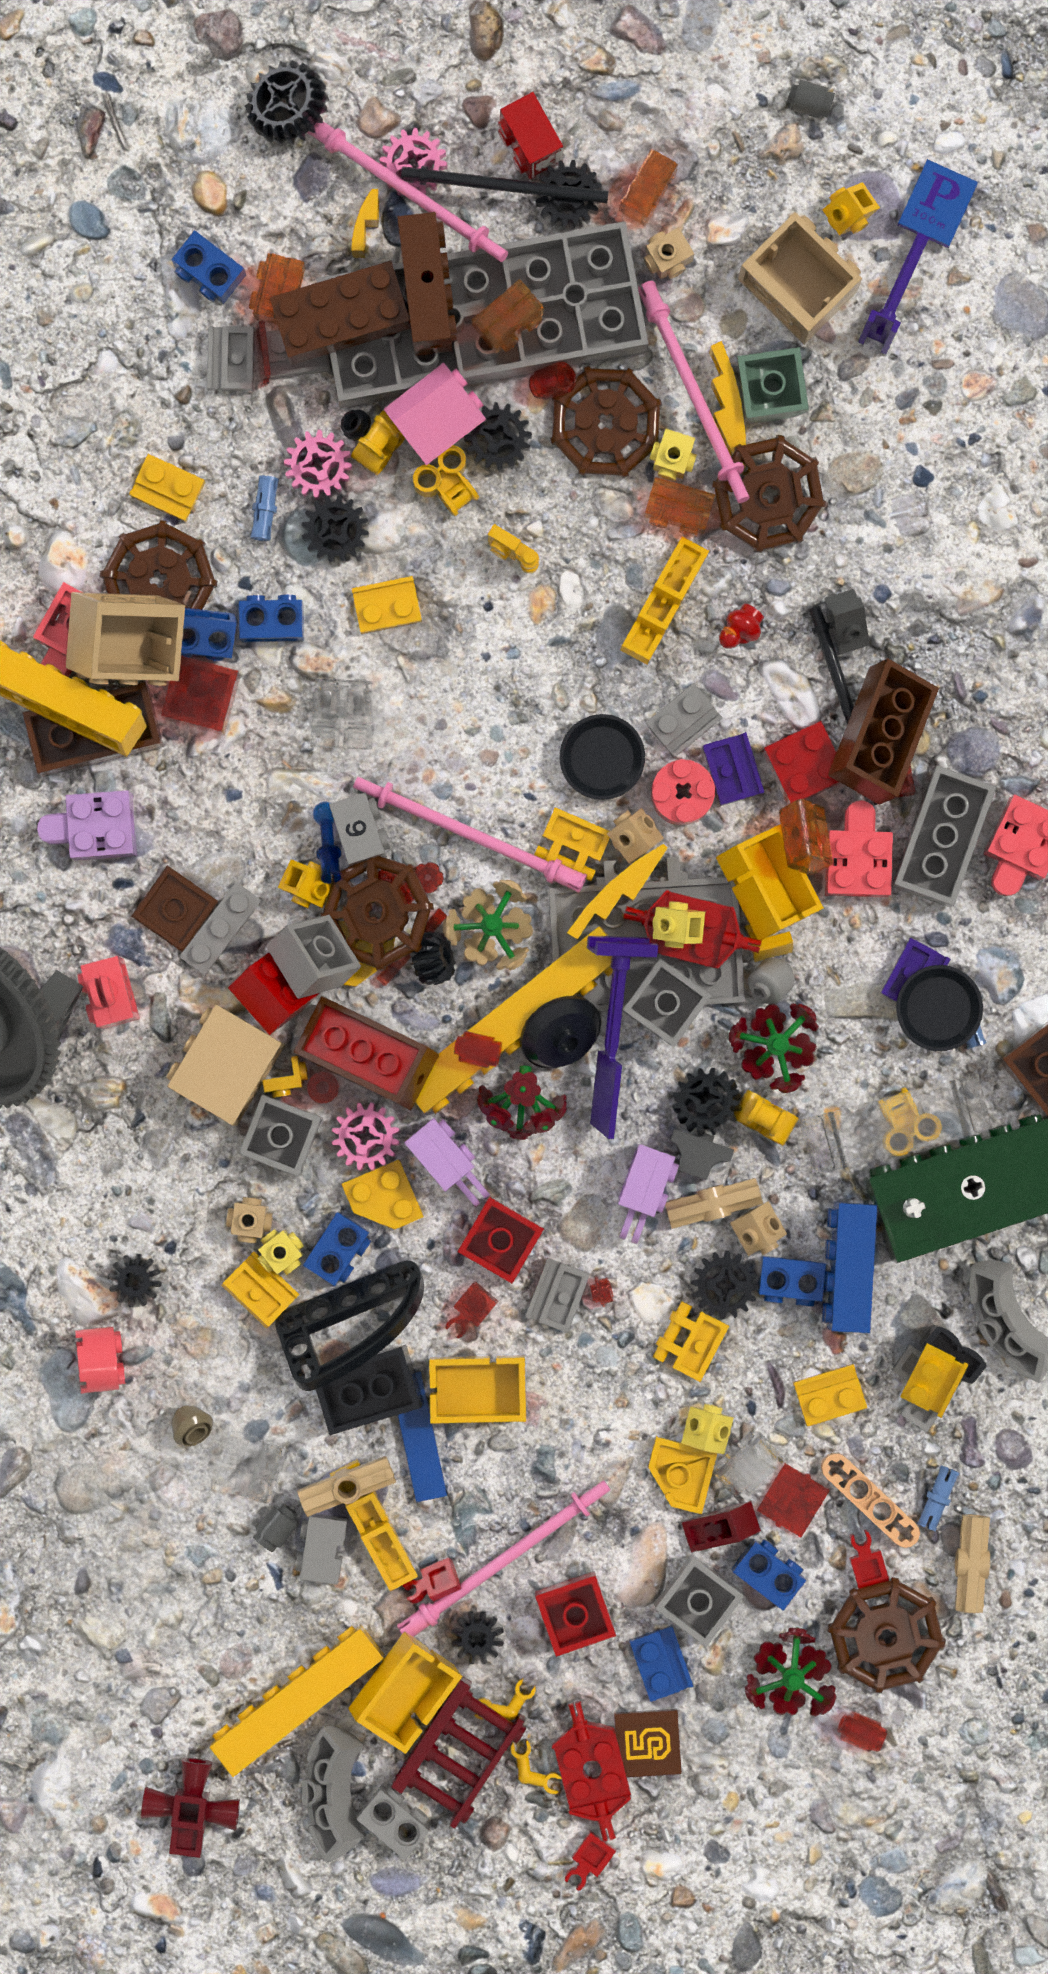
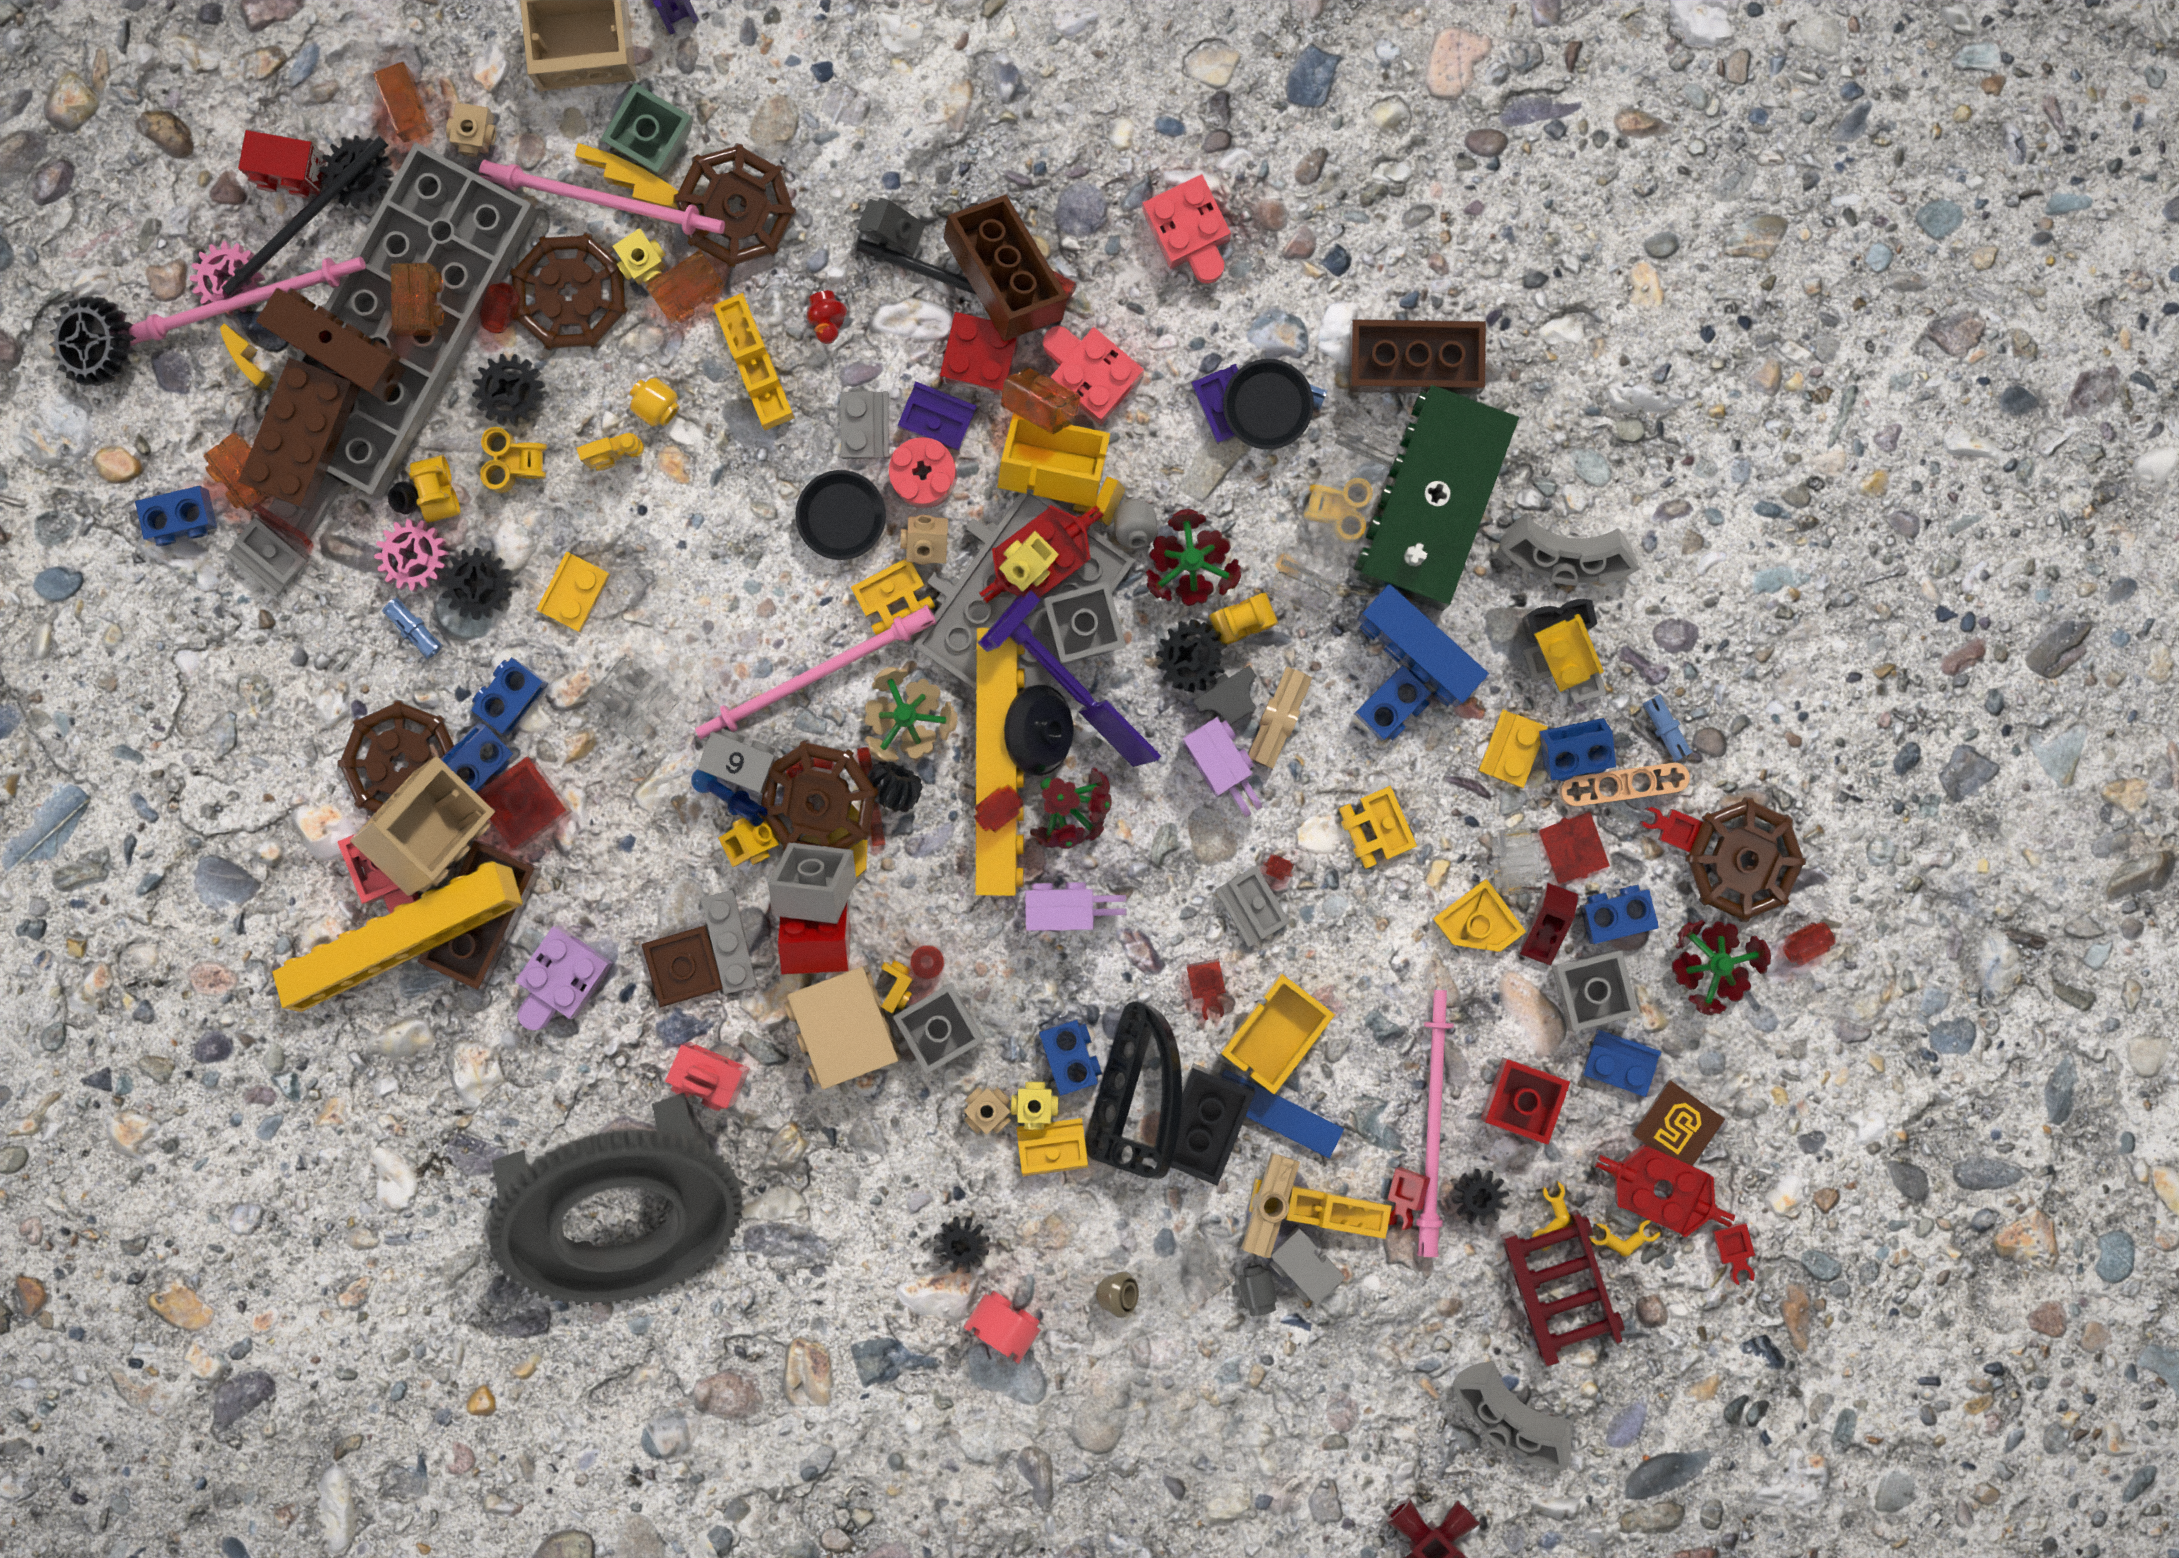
camera: 45 degrees left, 0 degrees up
(167, 488) = (330, 695): yellow plate -> none
(297, 1700) = (1413, 1387): yellow brick -> none
(366, 1053) = (927, 903): red brick -> none
(368, 1122) = (986, 947): bright pink gear -> none
(384, 1196) = (1057, 983): yellow plate -> none
(388, 1827) = (1577, 1396): light grey brick -> none
(404, 1683) = (1470, 1288): yellow piece -> none
(436, 412) = (446, 422): bright pink brick -> none
(436, 876) = (830, 730): clear red plate -> none
(500, 1240) = (1170, 916): red brick -> none
(575, 551) = (654, 402): none -> yellow head
(626, 883) = (960, 579): yellow slope -> none
(707, 1429) = (1460, 870): light yellow brick -> none
(738, 1285) = (1343, 772): black gear -> none
(759, 1229) = (1331, 697): tan brick -> none
(872, 1439) = (1577, 741): none -> blue brick
(943, 836) = (1130, 288): light grey brick -> none
(972, 1563) = (1742, 742): tan piece -> none

